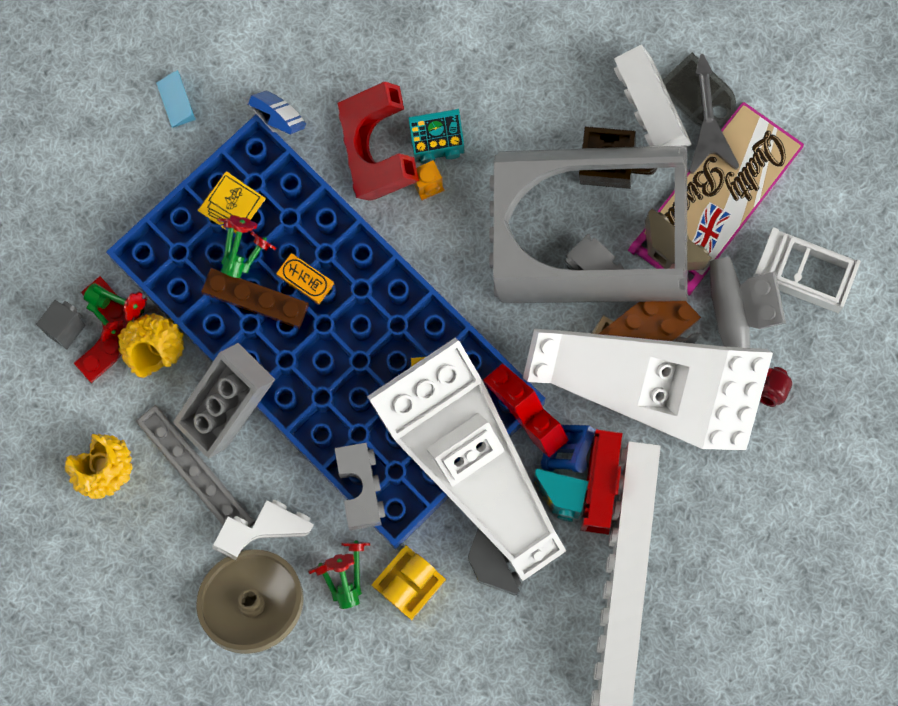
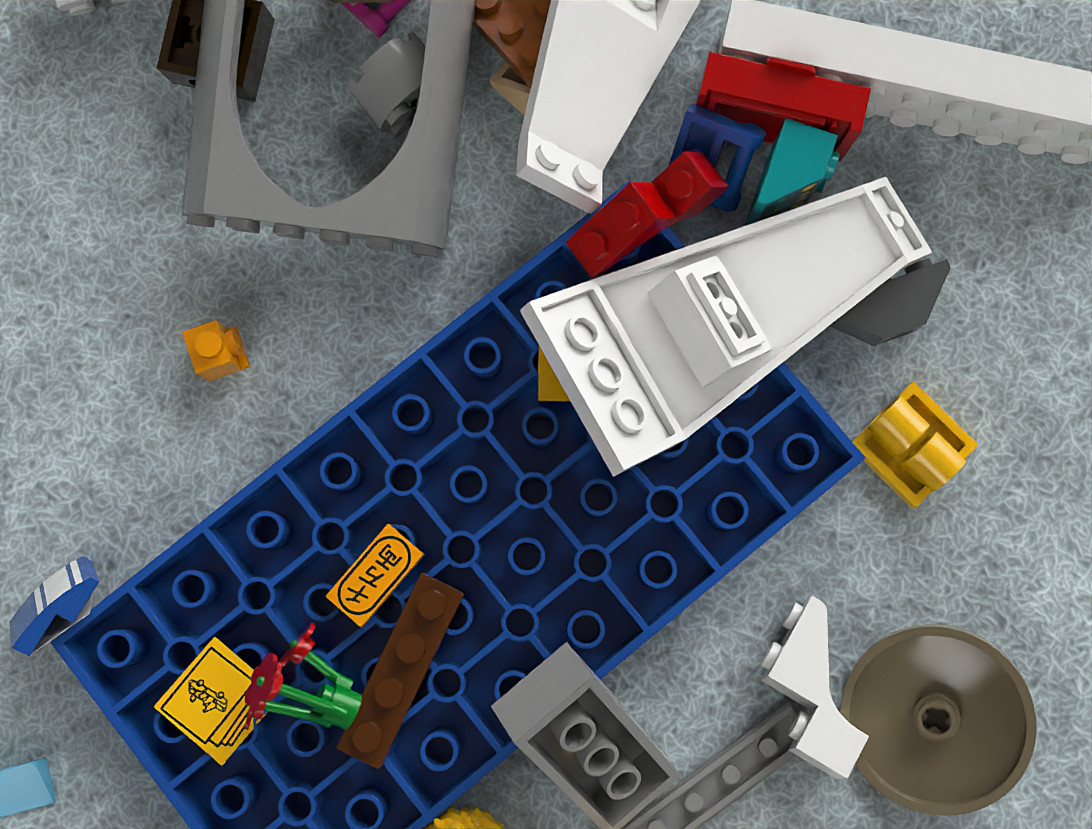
camera: 85 degrees left, 5 degrees up
(346, 594) = (893, 553): plant -> none
(358, 118) = (85, 459): red arch -> none
(365, 509) = (807, 500): light grey arch -> none
(436, 136) = (137, 324): slope -> none

